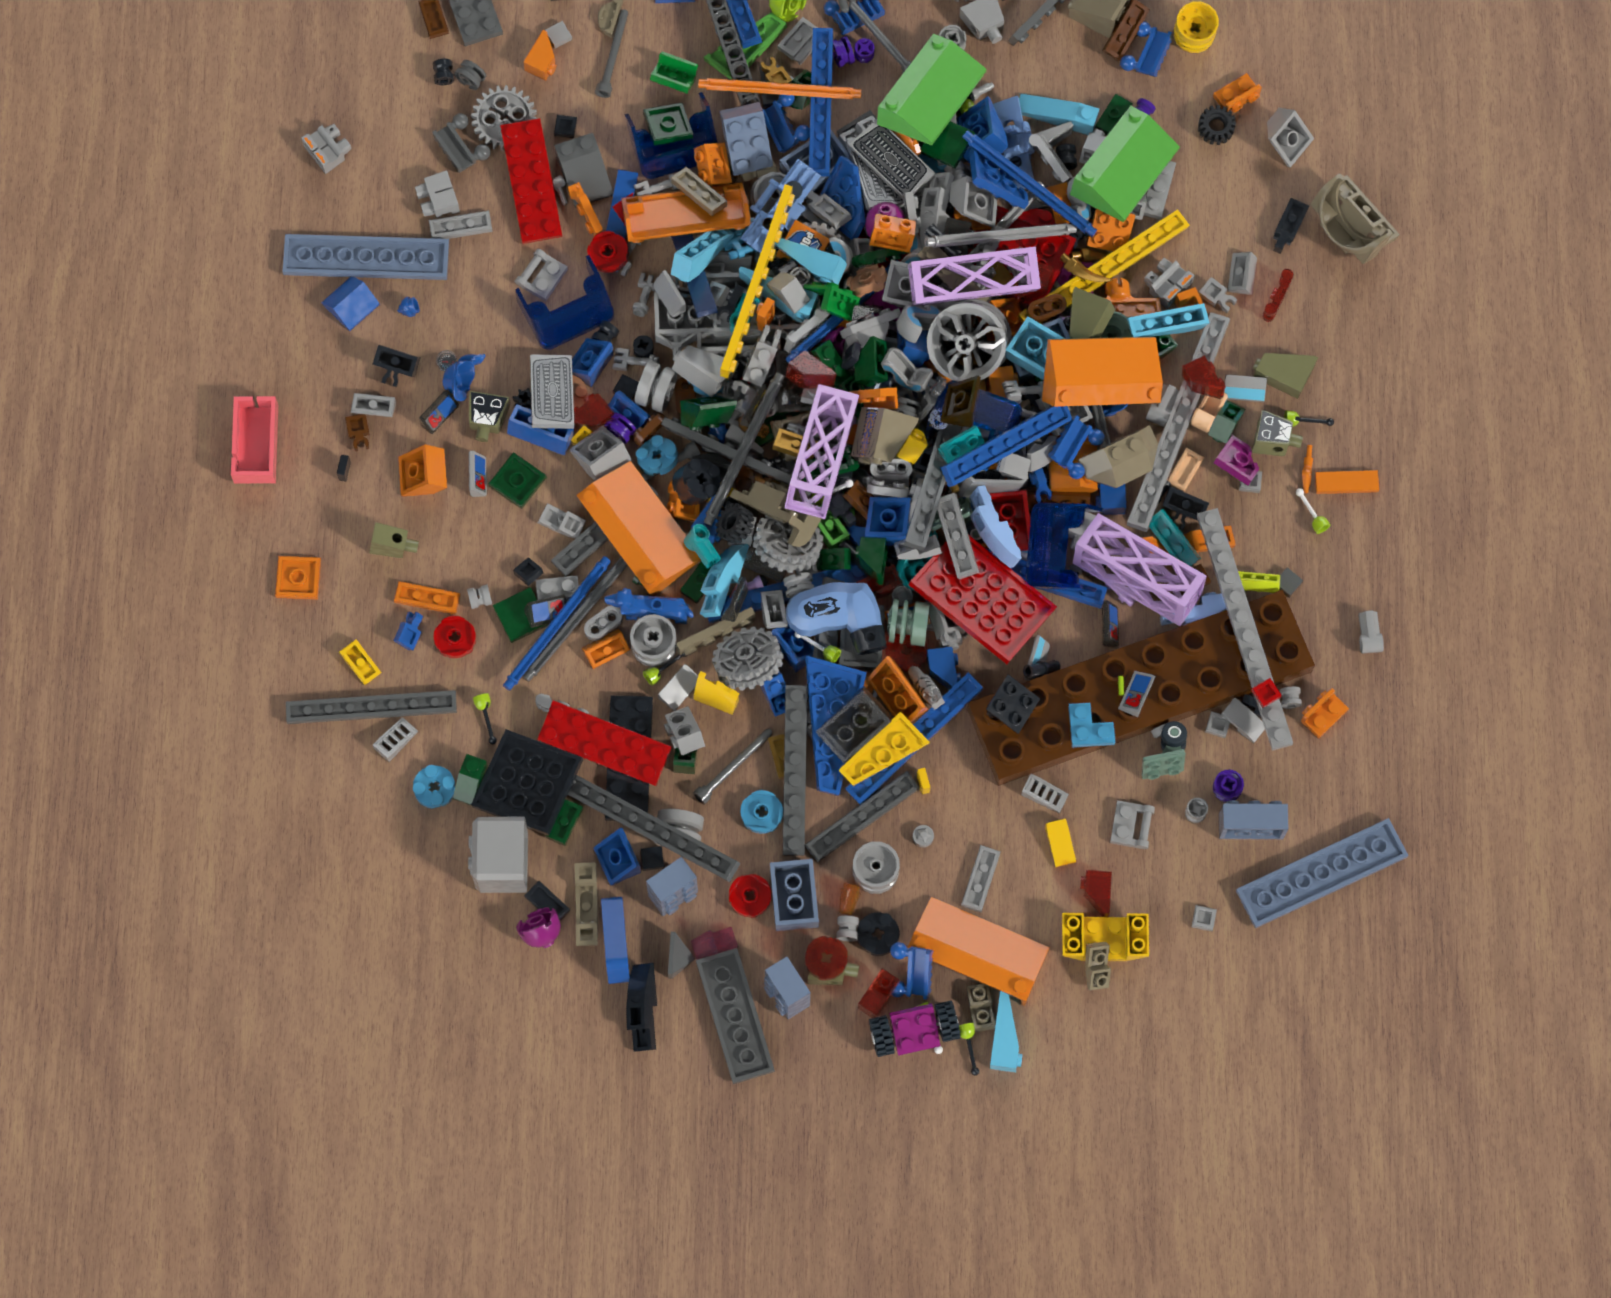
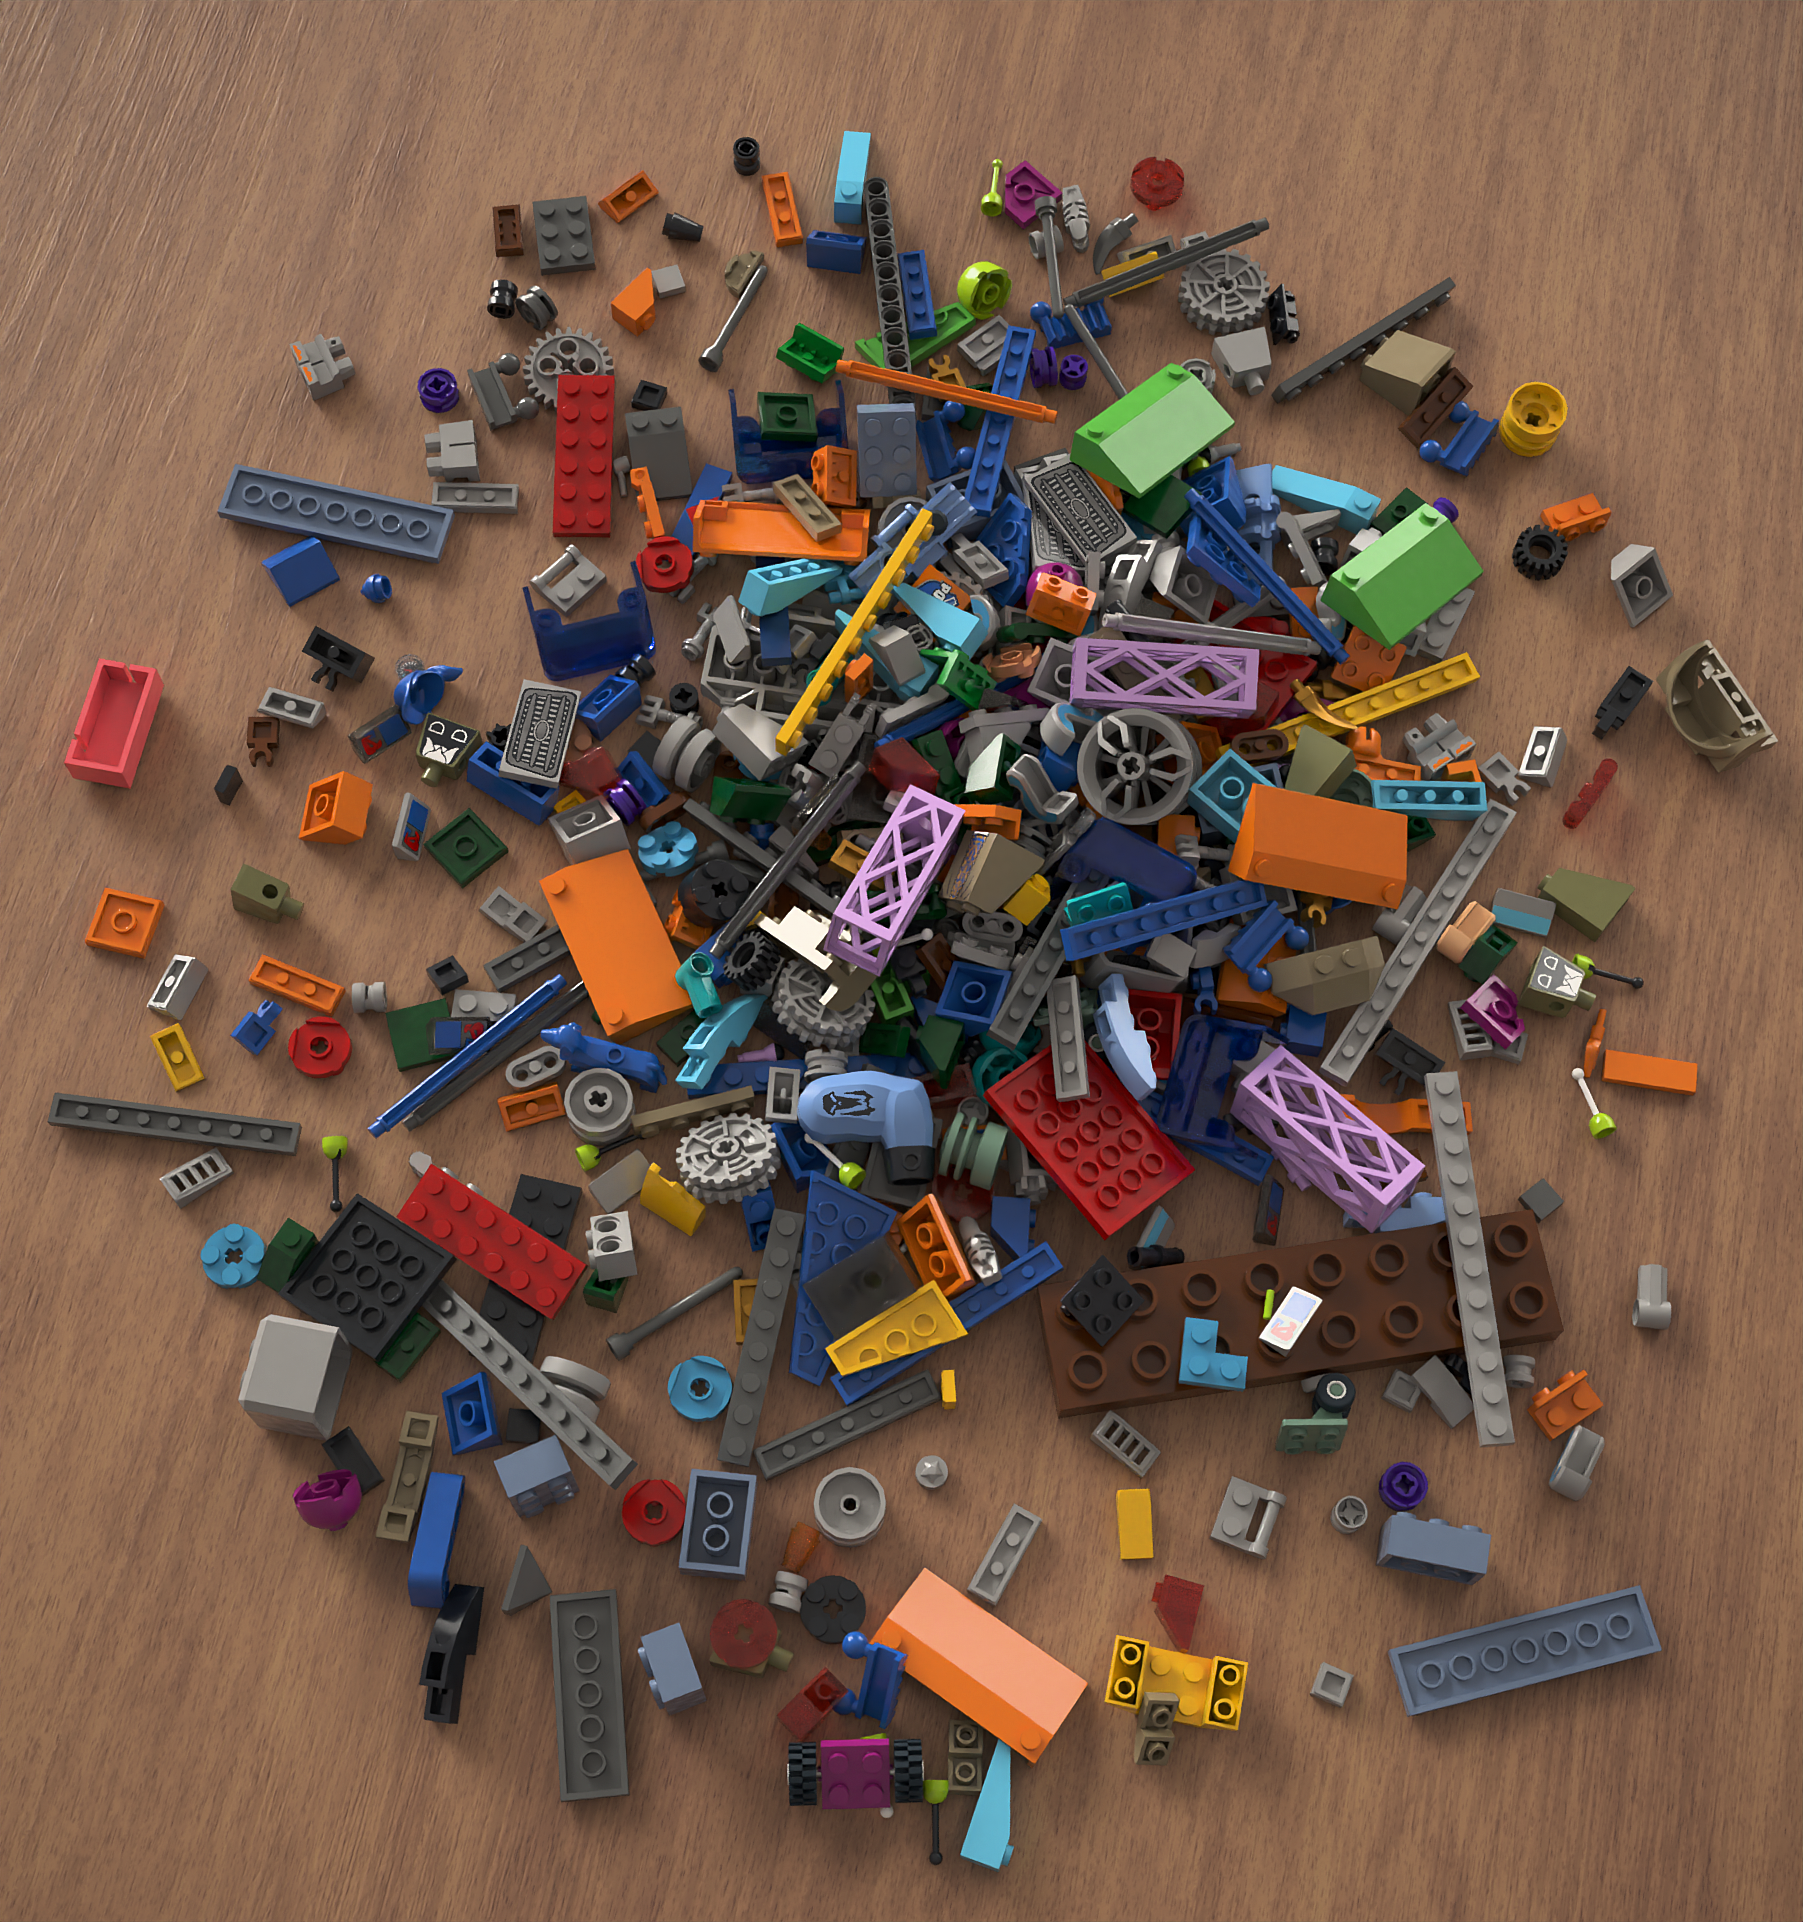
camera: 10 degrees right, 5 degrees down
(346, 614) = (178, 986): none -> light grey slope
(414, 150) = (438, 390): none -> dark purple wheel
(714, 943) = (584, 1574): clear pink slope -> none
(735, 601) = (730, 1072): clear smoke slope -> none
(851, 356) = (967, 757): black tile -> none
(907, 553) = (1026, 1049): light grey slope -> none
(961, 402) = (1112, 848): dark brown slope -> none
(1105, 414) = (1315, 907): none -> pearl gold plate
(1173, 539) = (1382, 1103): teal plate -> none
(1185, 469) = (1417, 1010): light nougat tile -> none
(1202, 378) = (1465, 886): clear red slope -> none
(1222, 491) = (1466, 1051): none -> light grey slope
(1260, 582) = (1501, 1192): neon yellow piece -> none
(1266, 692) = (1486, 1358): red plate -> none
(1337, 749) = (1576, 1463): none -> light grey animal

